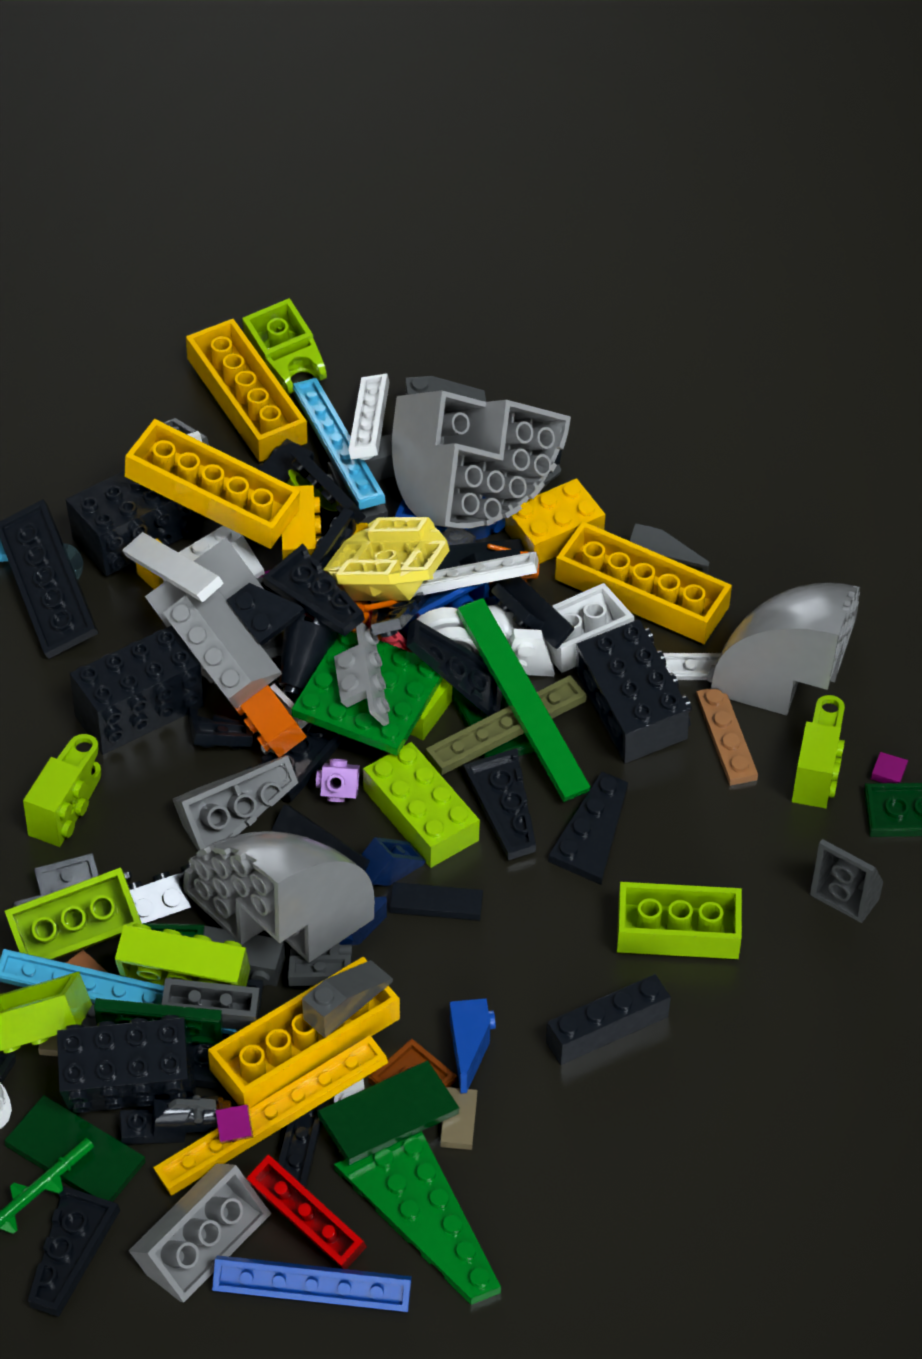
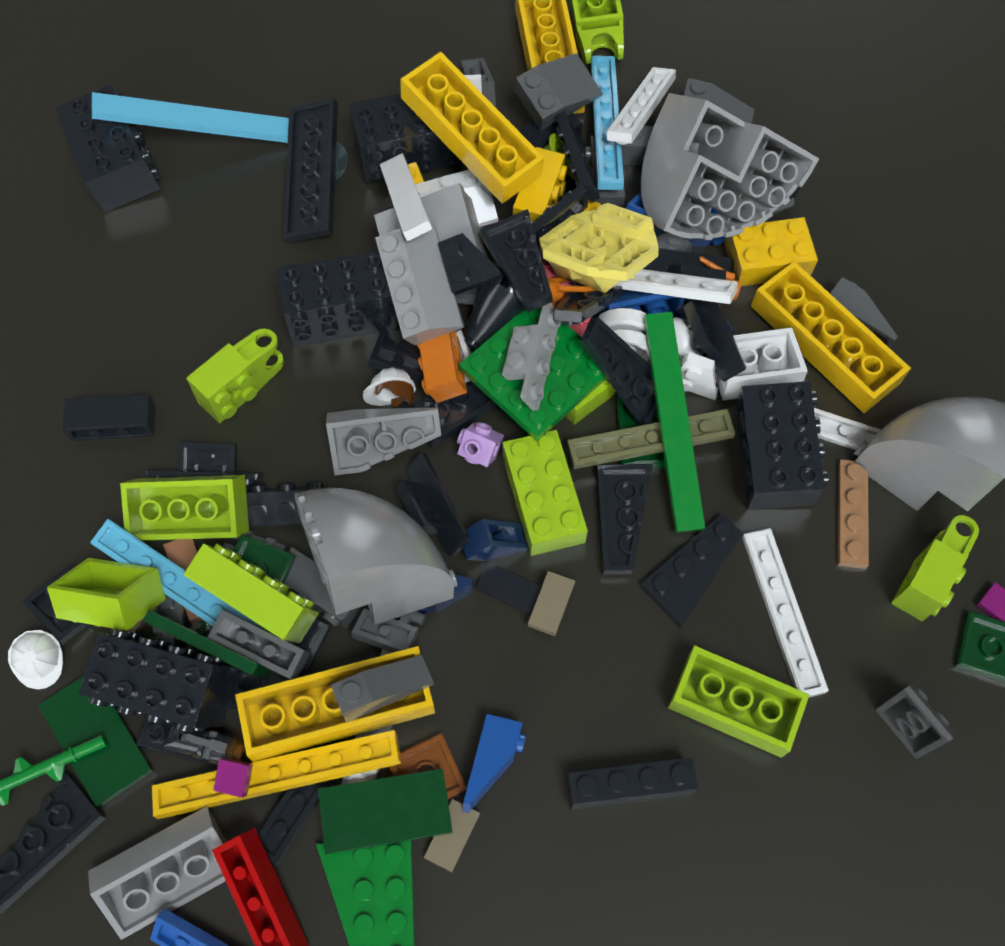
camera: 20 degrees right, 15 degrees up
(227, 757) = (390, 387): none -> white piece
(275, 426) = (556, 88): none -> dark grey slope
(470, 896) = (551, 603): none -> dark tan tile
(692, 836) = (784, 613): none -> white tile

